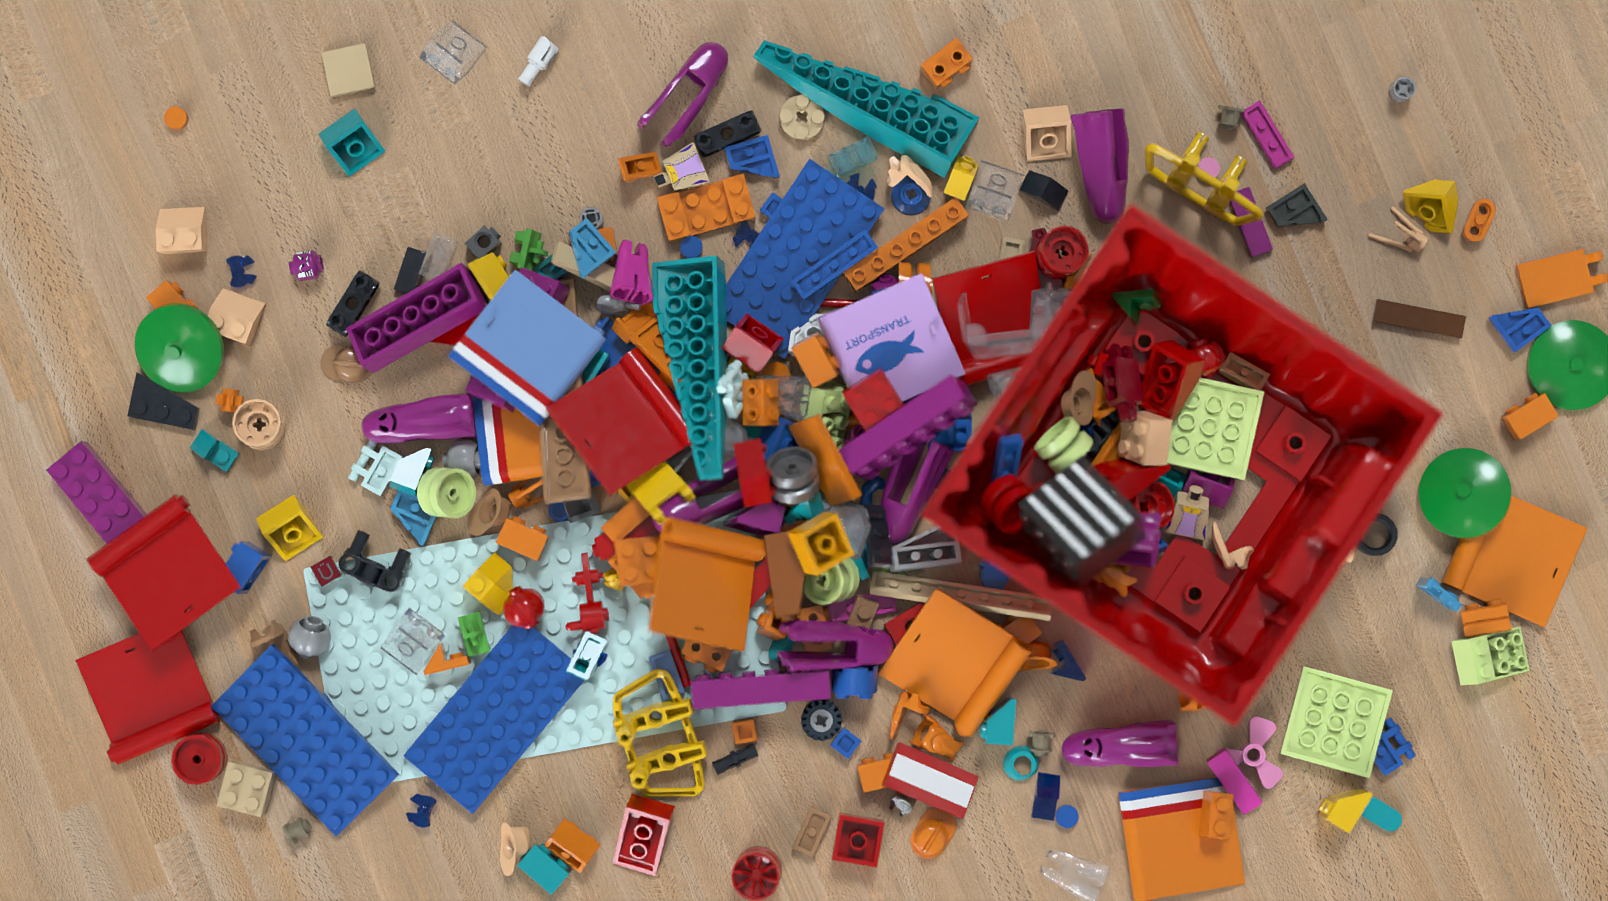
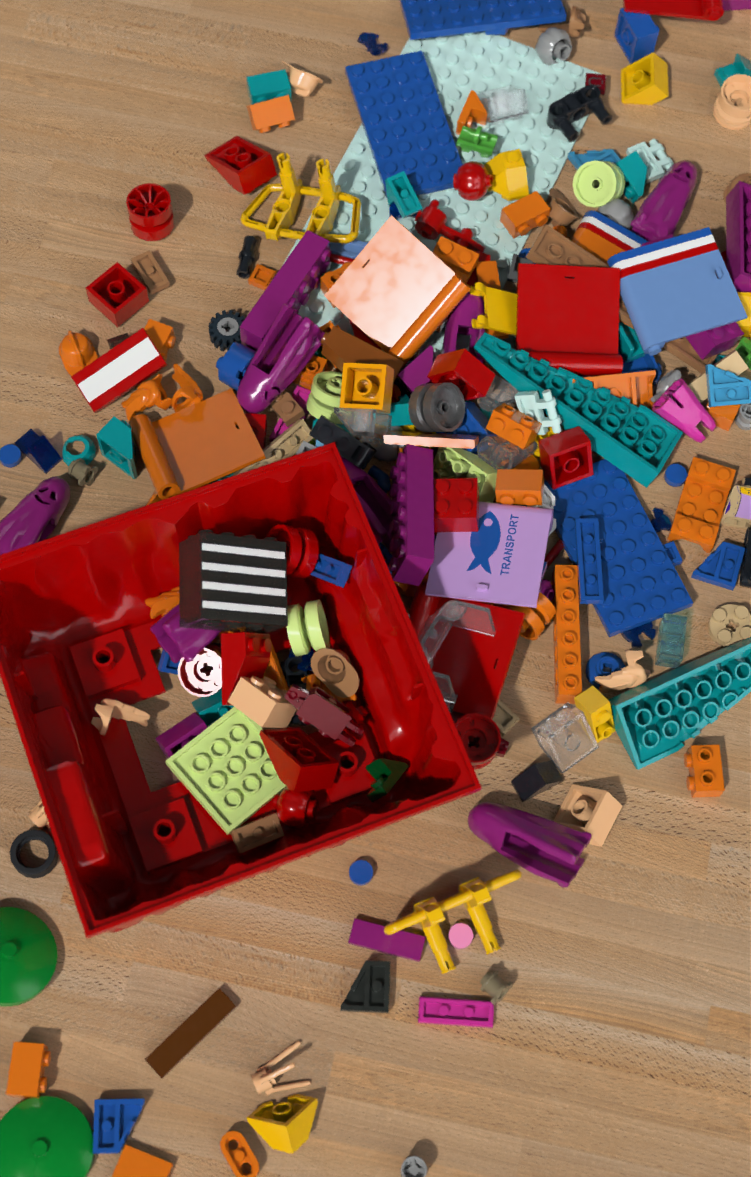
camera: 125 degrees right, 20 degrees down
(845, 742) = (197, 336): blue plate -> none
(1190, 514) = (170, 705): tan torso -> none

